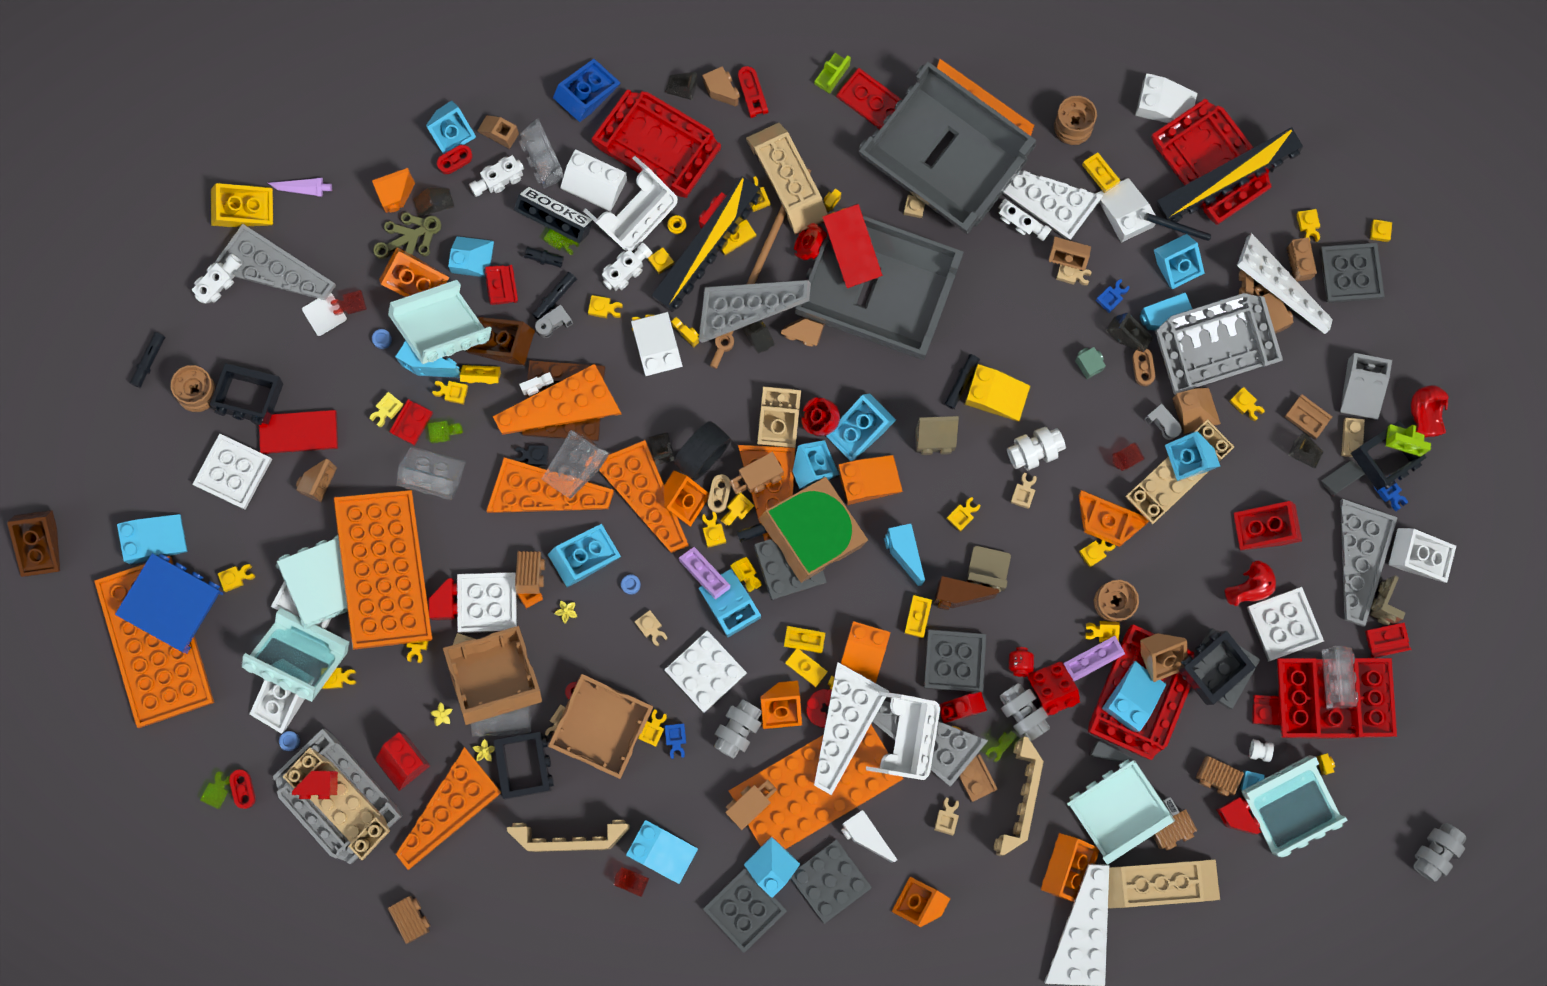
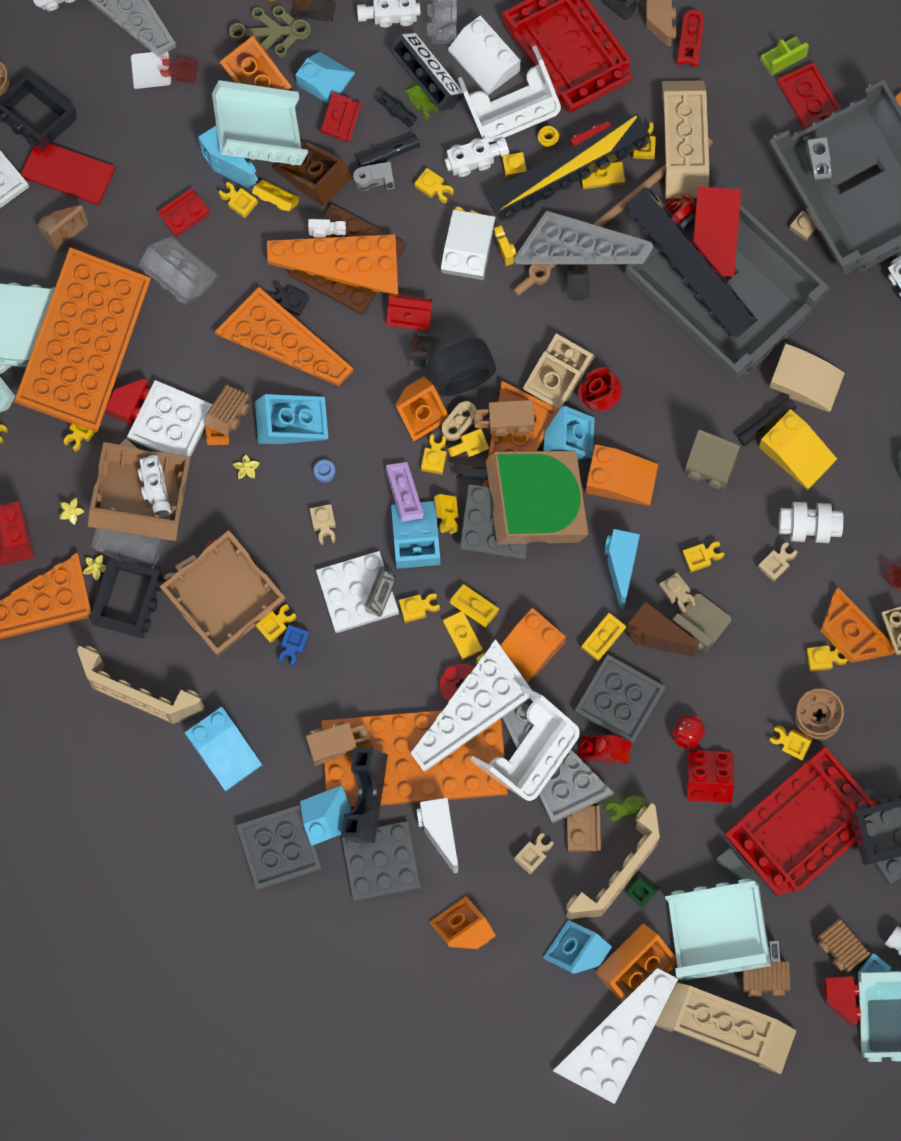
camera: 30 degrees right, 5 degrees down
(381, 338) = (195, 118): medium blue tile -> none
(388, 407) = (168, 187): light yellow plate -> none
(441, 431) = (209, 234): clear neon green plate -> none
(503, 665) = (154, 485): none -> white brick
(574, 464) = (326, 323): clear slope -> none
(631, 881) = (177, 763): clear red bracket -> none
(636, 422) = (409, 312): none -> red plate
(640, 485) = (382, 375): orange wing -> none
(726, 665) = (380, 592): none -> slope
(742, 722) = (368, 657): light grey piece -> none
(758, 663) = (414, 607): none -> yellow plate
(781, 706) = (417, 661): orange slope -> none
(802, 857) = (369, 770): none -> black arch
(804, 330) = (628, 298): medium nougat slope -> none
(832, 199) = (722, 178): yellow plate -> none
(844, 280) = (691, 262): none -> black brick
(861, 426) = (638, 419): medium azure slope -> none
(904, 148) = (819, 158): none -> light grey leg
(956, 551) = (677, 590): none -> tan plate
(976, 331) = (807, 378): none -> tan slope
(1017, 878) = (577, 949): none -> medium azure slope
(1032, 725) = (665, 773): light grey piece -> none
(1045, 806) = (642, 891): none -> dark green slope
(1094, 658) = (767, 763): lavender plate -> none
(1134, 698) = (791, 822): medium azure slope -> none
(1163, 655) = (841, 791): medium nougat slope -> none

